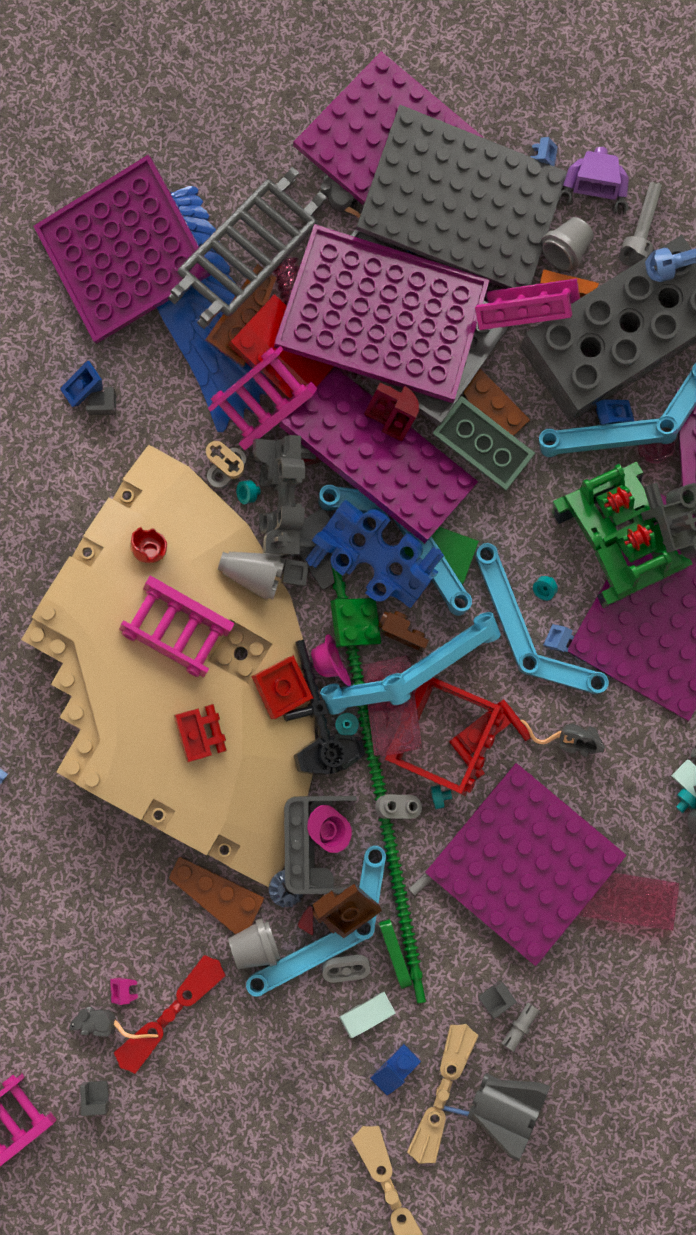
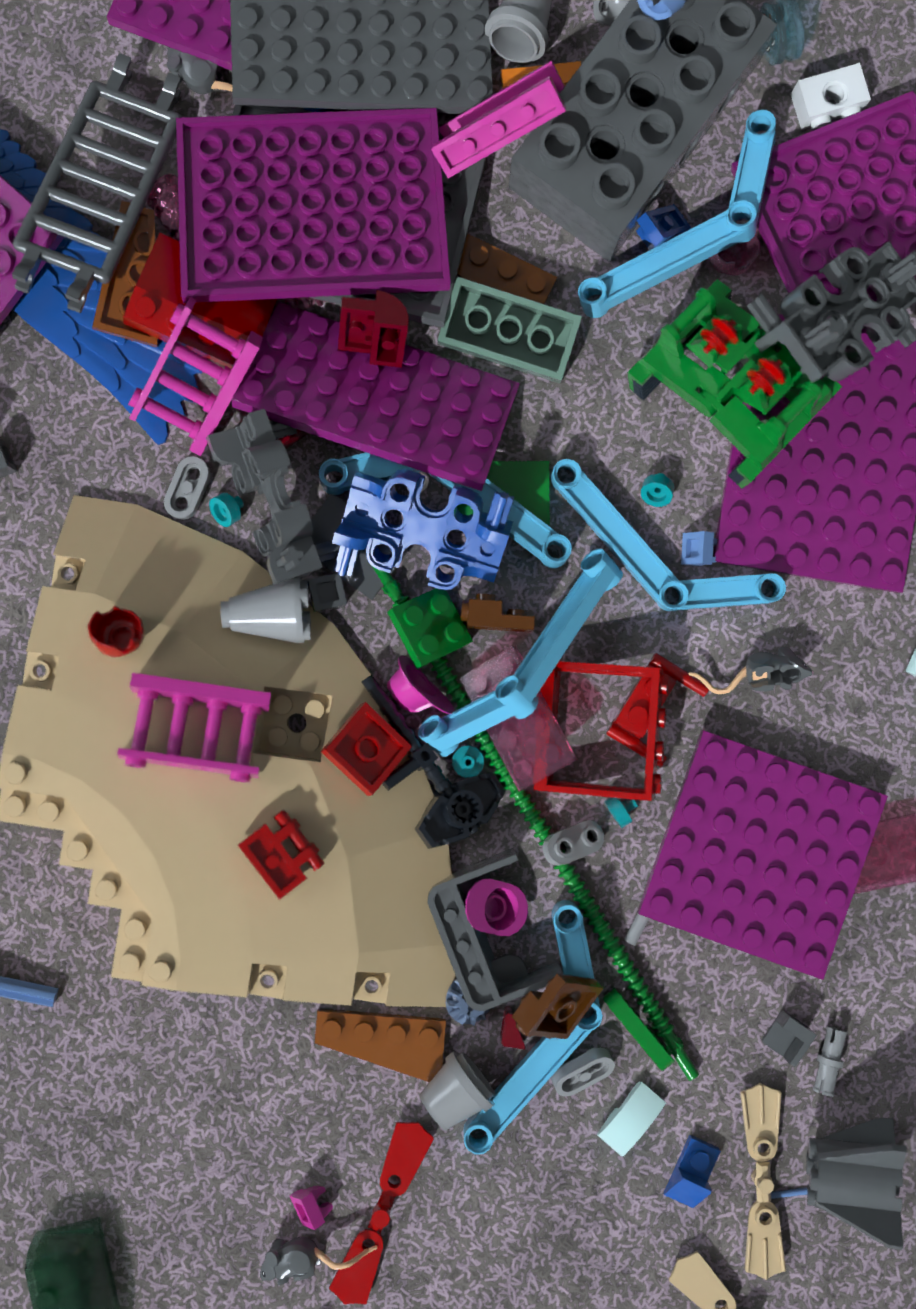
camera: 25 degrees left, 5 degrees up
(228, 456) = (182, 470): tan beam -> none

